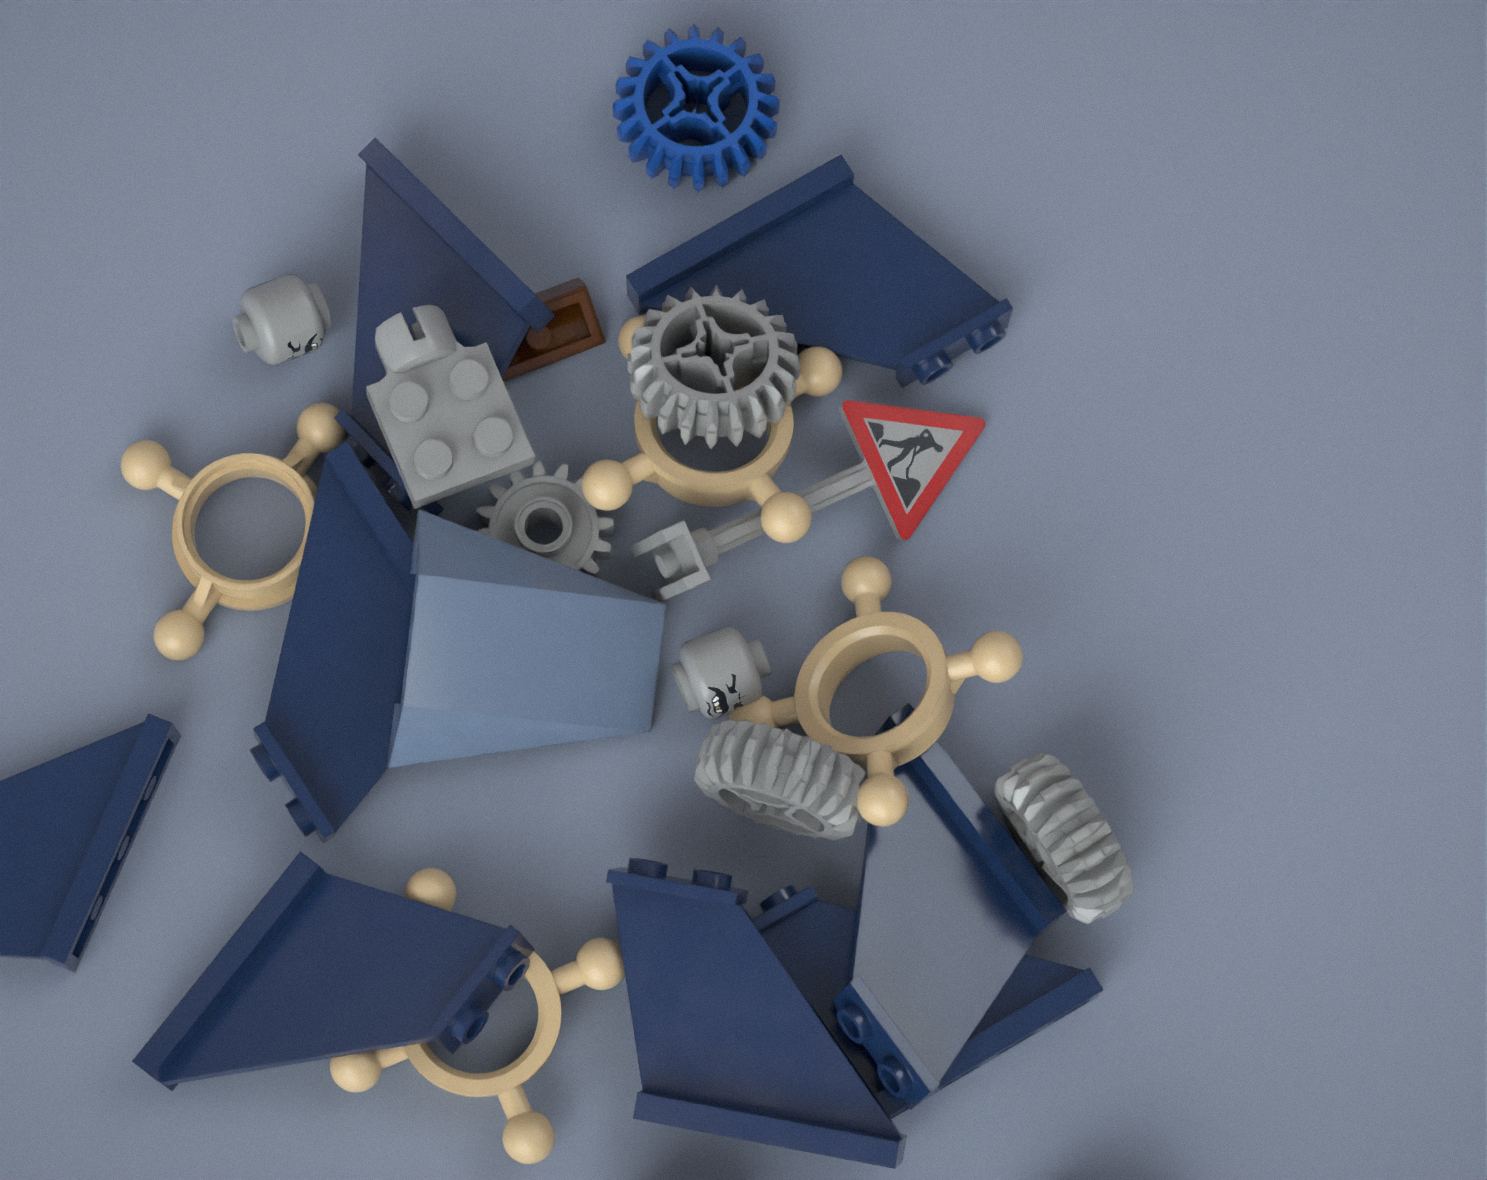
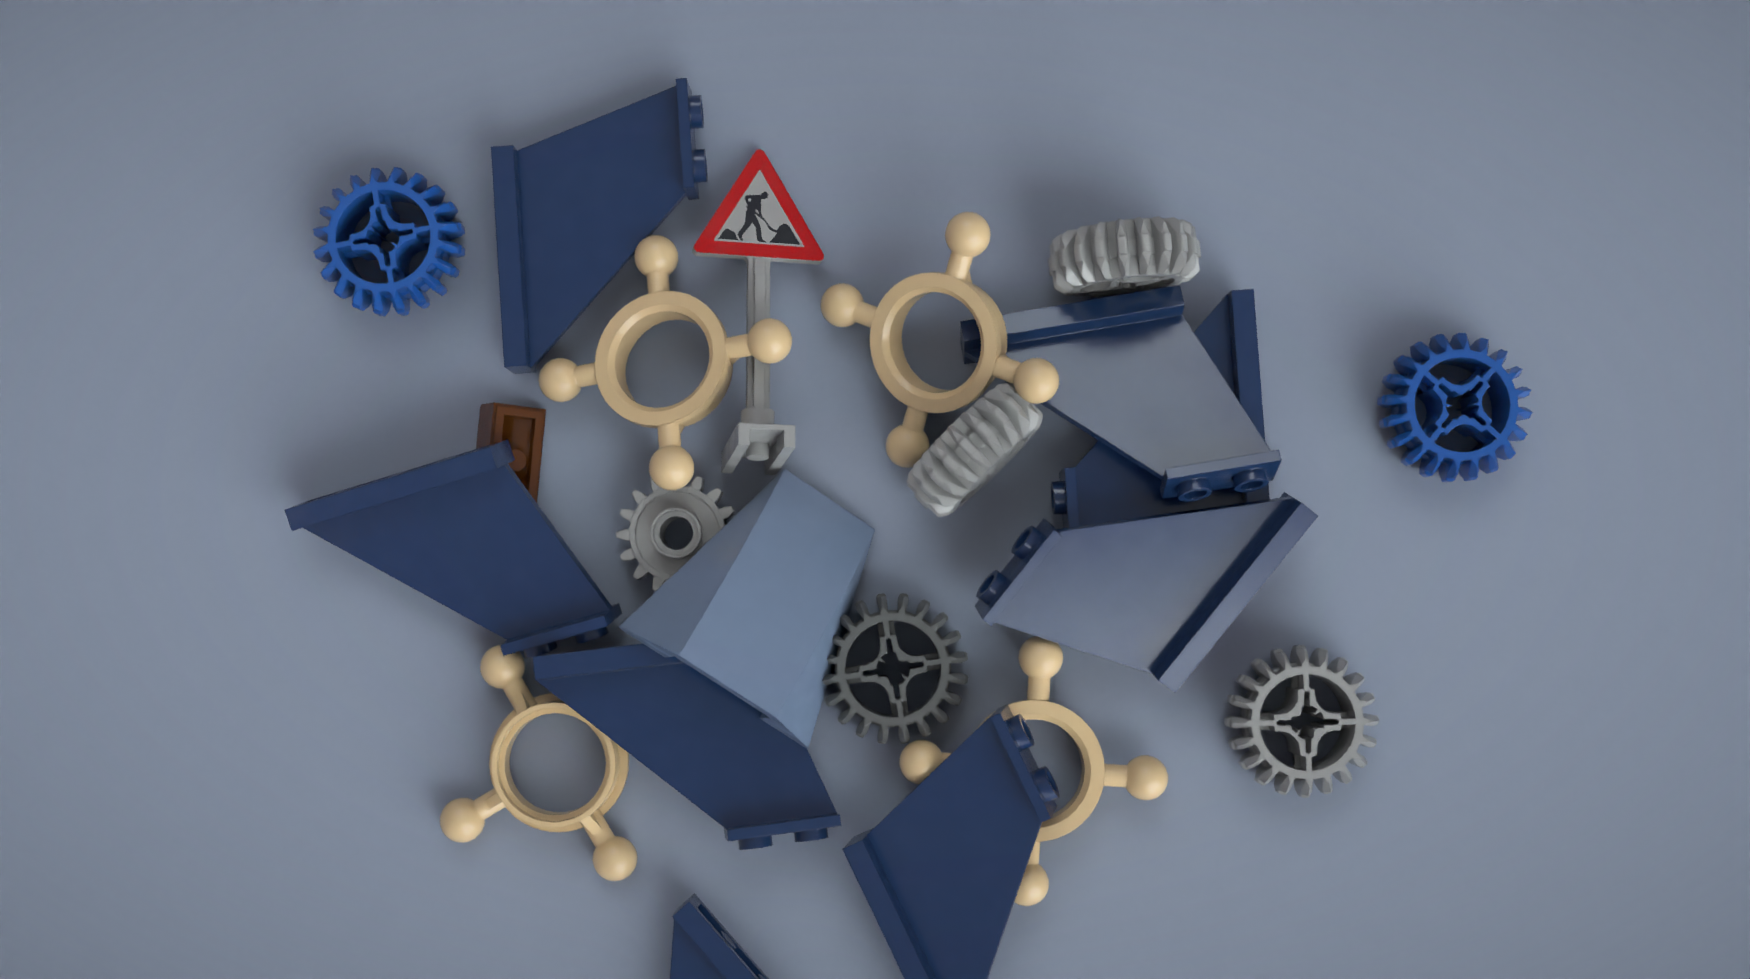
camera: 60 degrees left, 10 degrees up
(282, 319) = (397, 656): light grey head -> none
(443, 409) = (544, 566): light grey plate -> none
(489, 833) = (900, 715): none -> dark grey gear
(720, 672) = (860, 453): light grey head -> none
(724, 351) = (628, 362): light grey gear -> none

